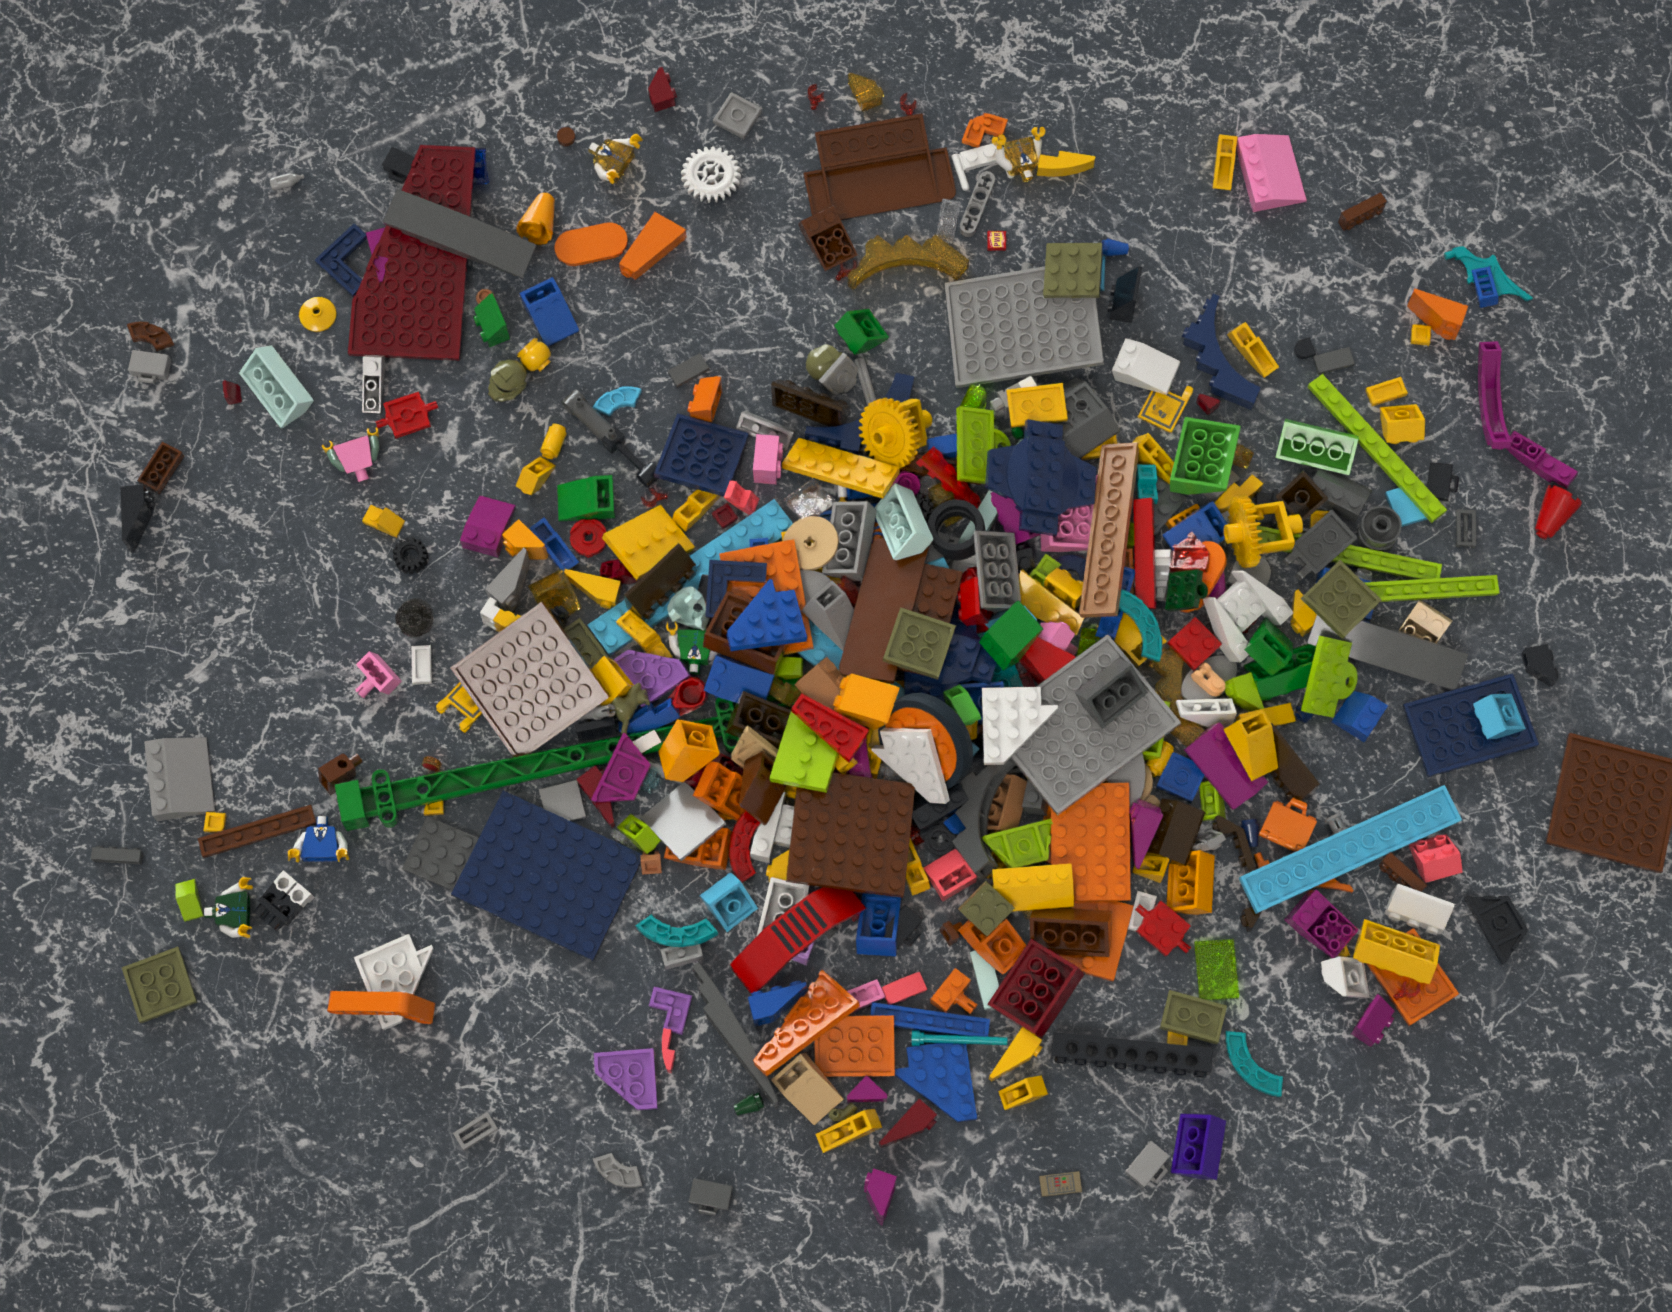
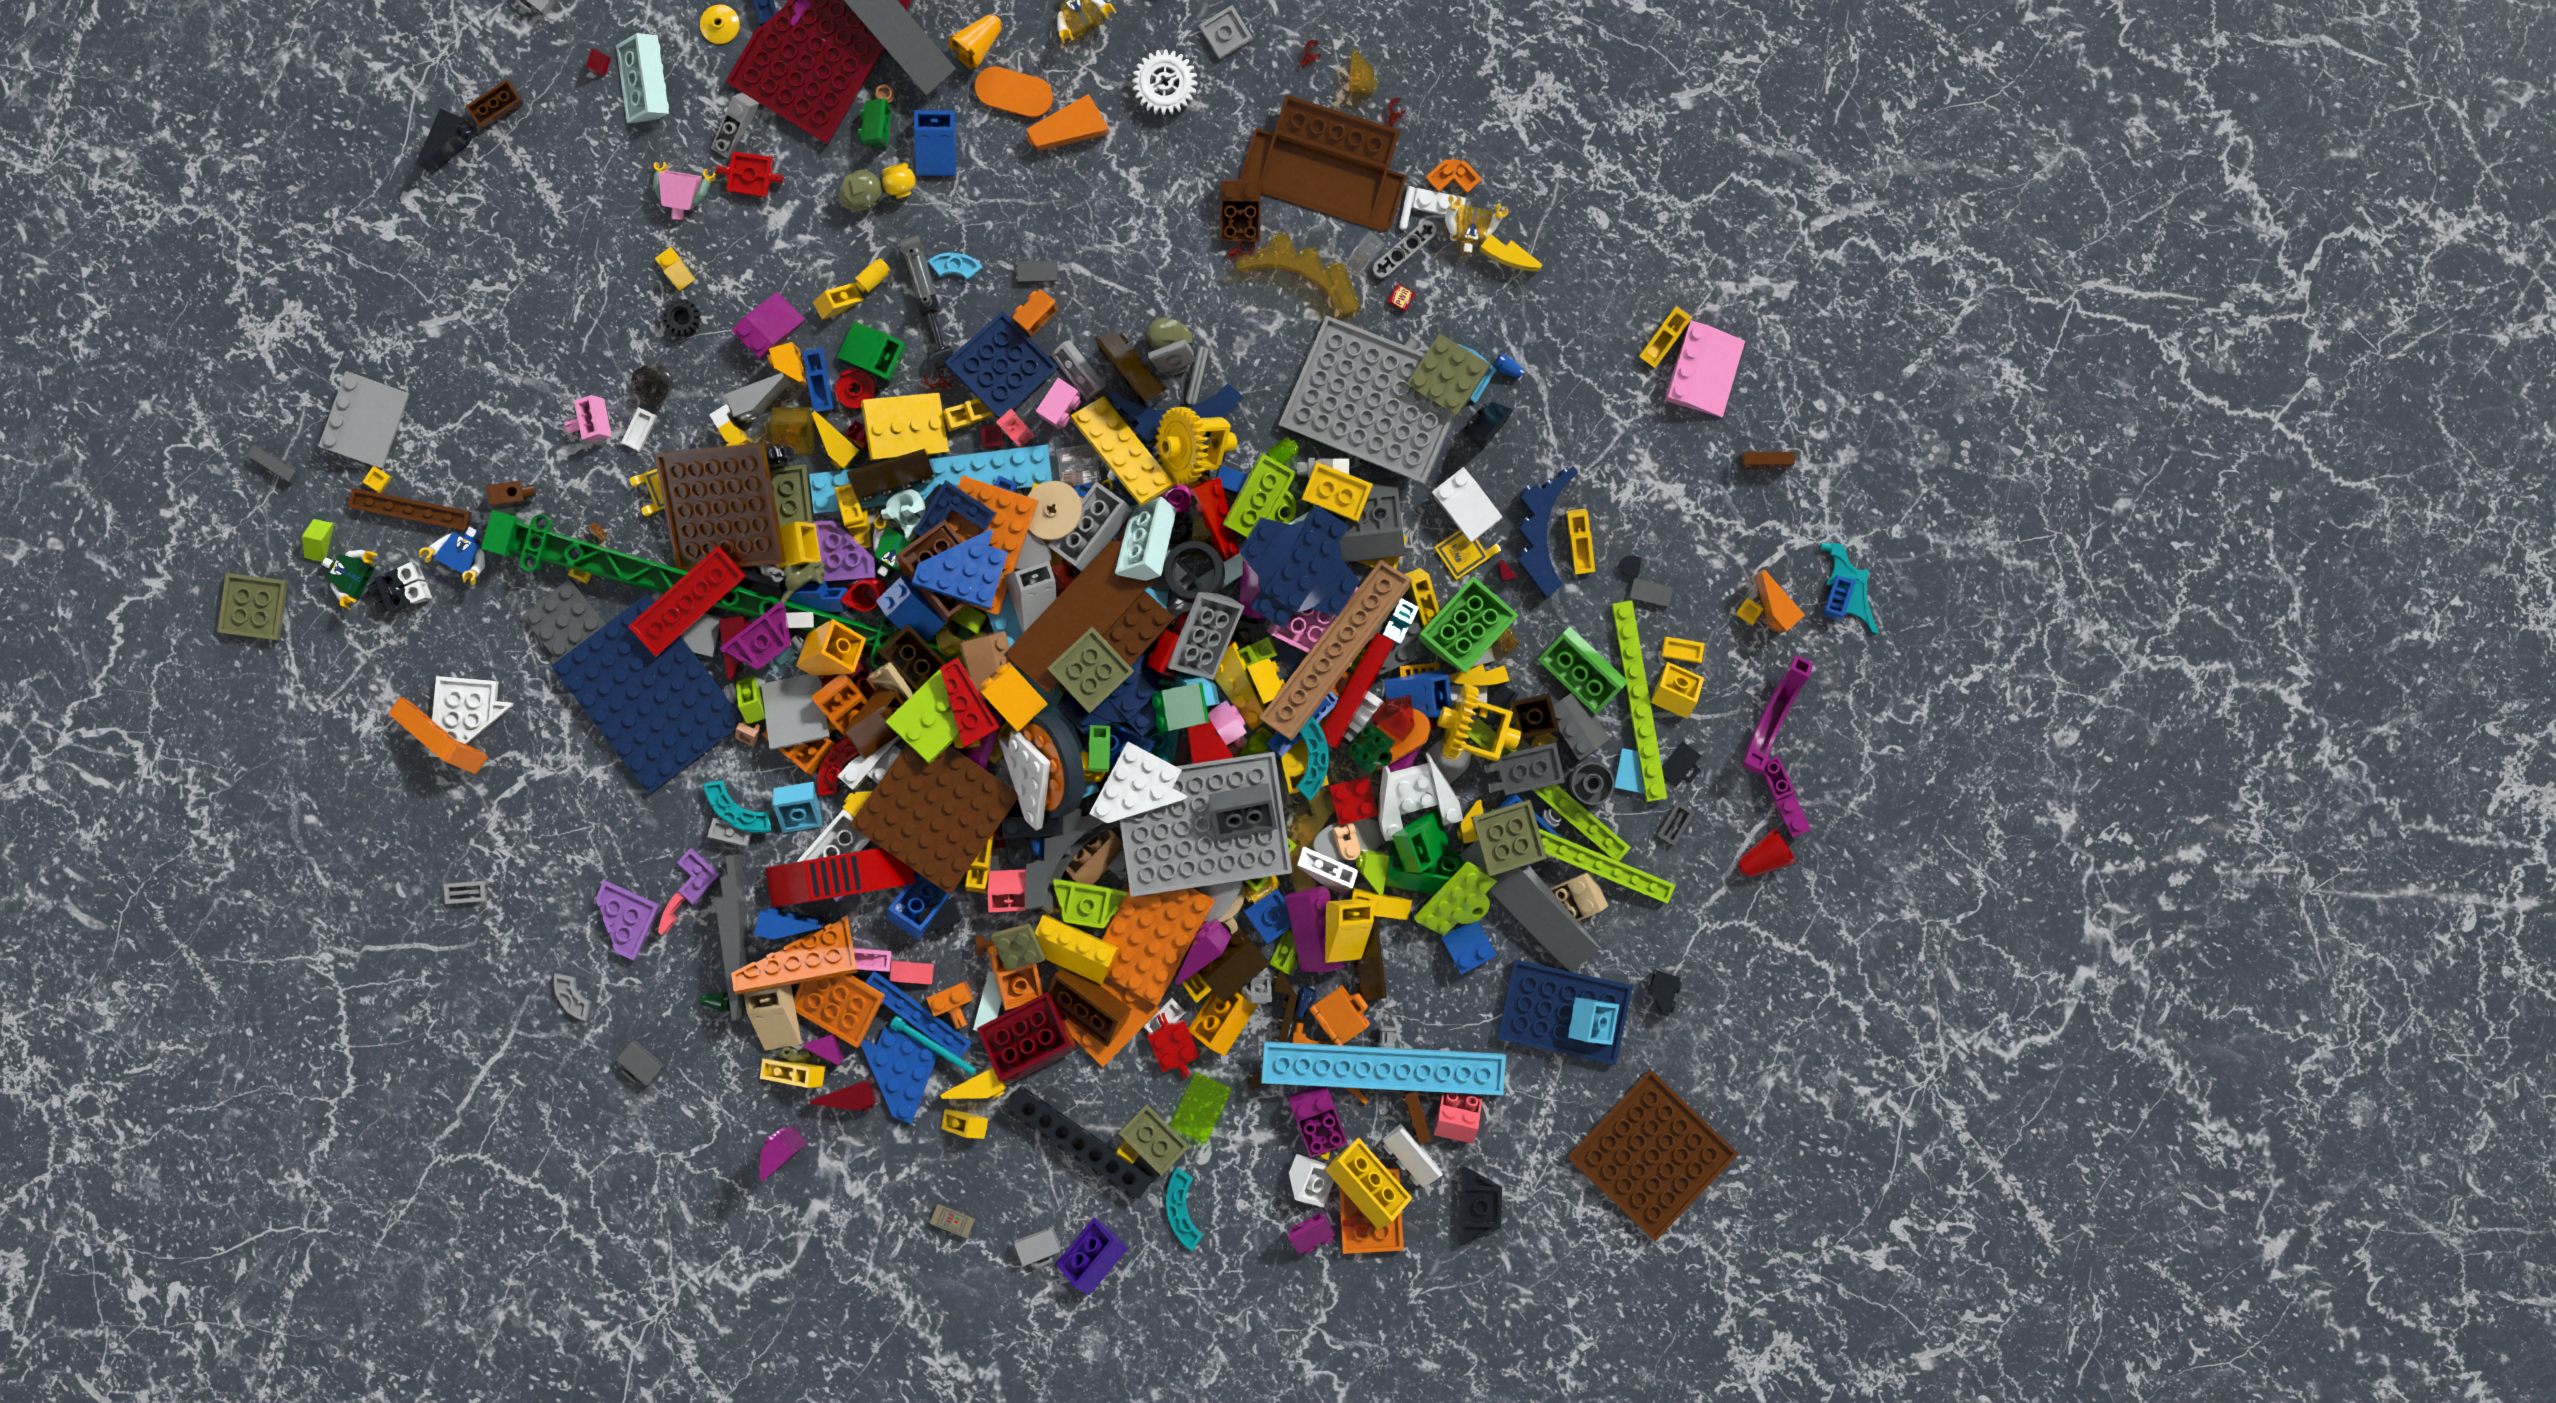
camera: 30 degrees right, 15 degrees up
(542, 774) = (687, 601): none -> red plate
(860, 331) = (1220, 321): green slope -> none

